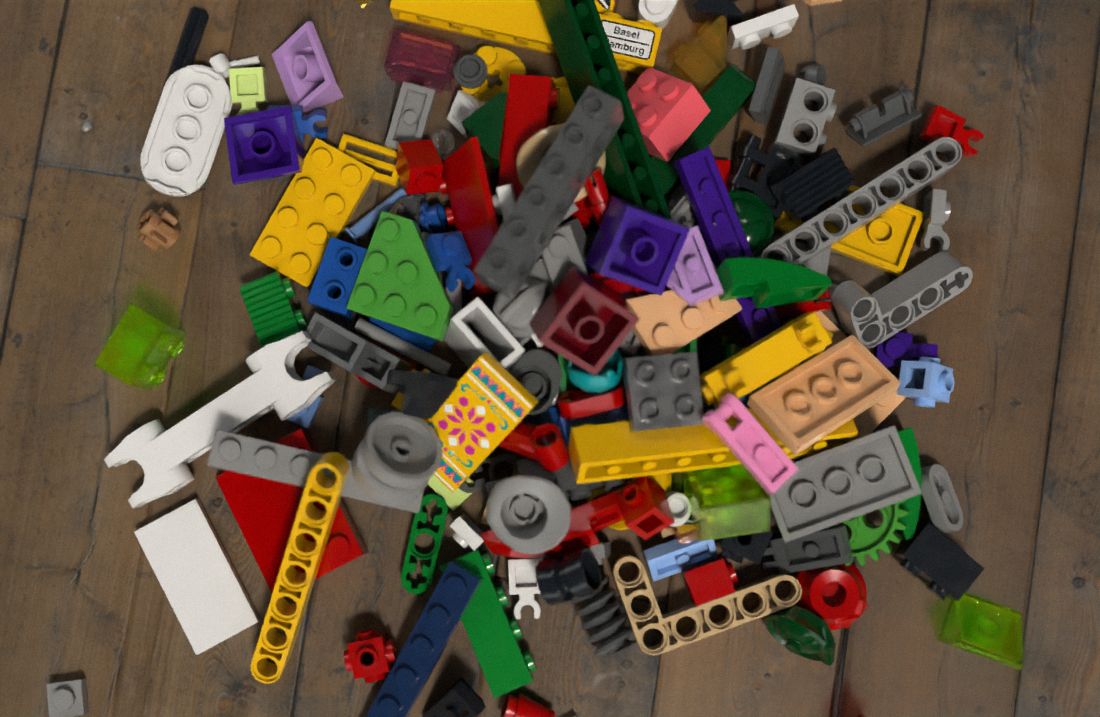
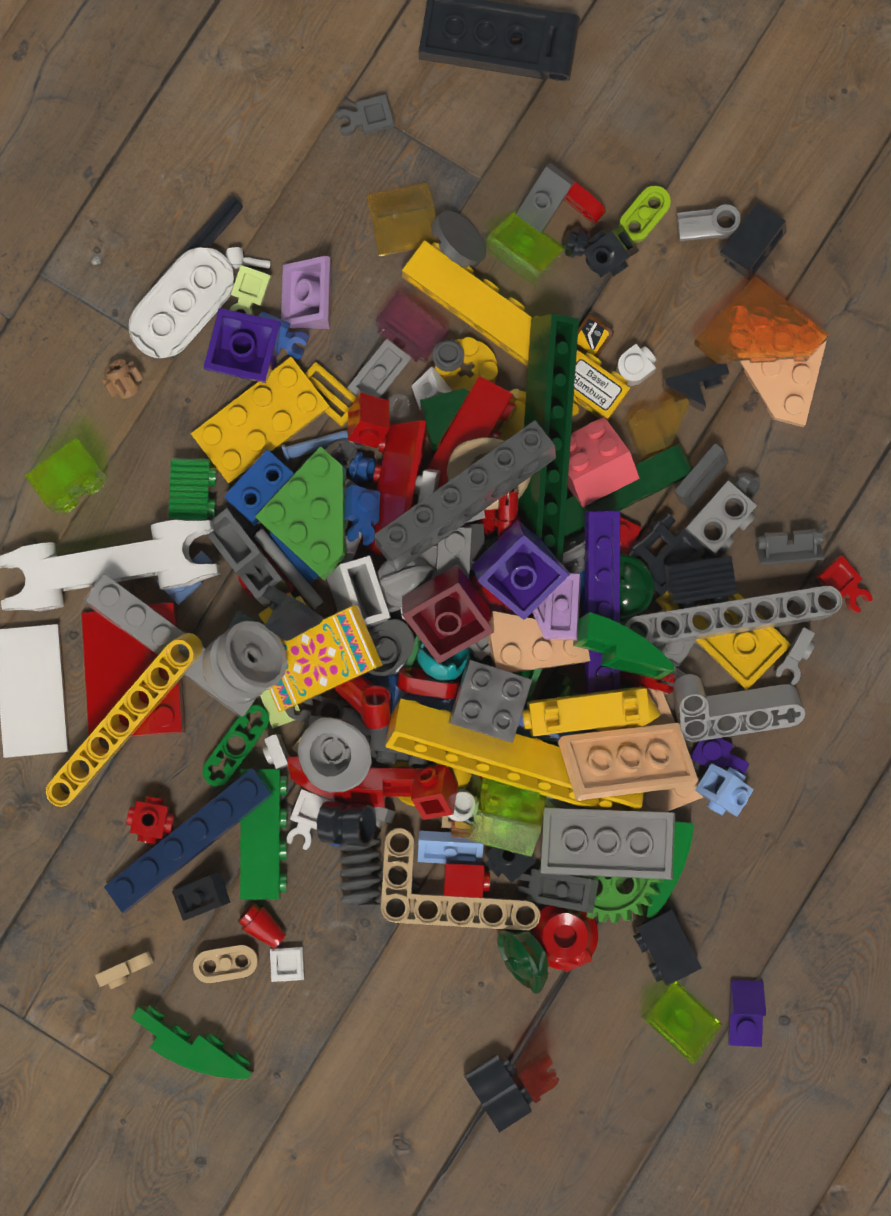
camera: 20 degrees right, 0 degrees up
(750, 444) = (543, 775): bright pink plate -> none
(776, 23) = (733, 424): white plate -> none
(941, 499) = (694, 896): light grey plate -> none
(1041, 591) = (746, 1013): none -> dark purple slope

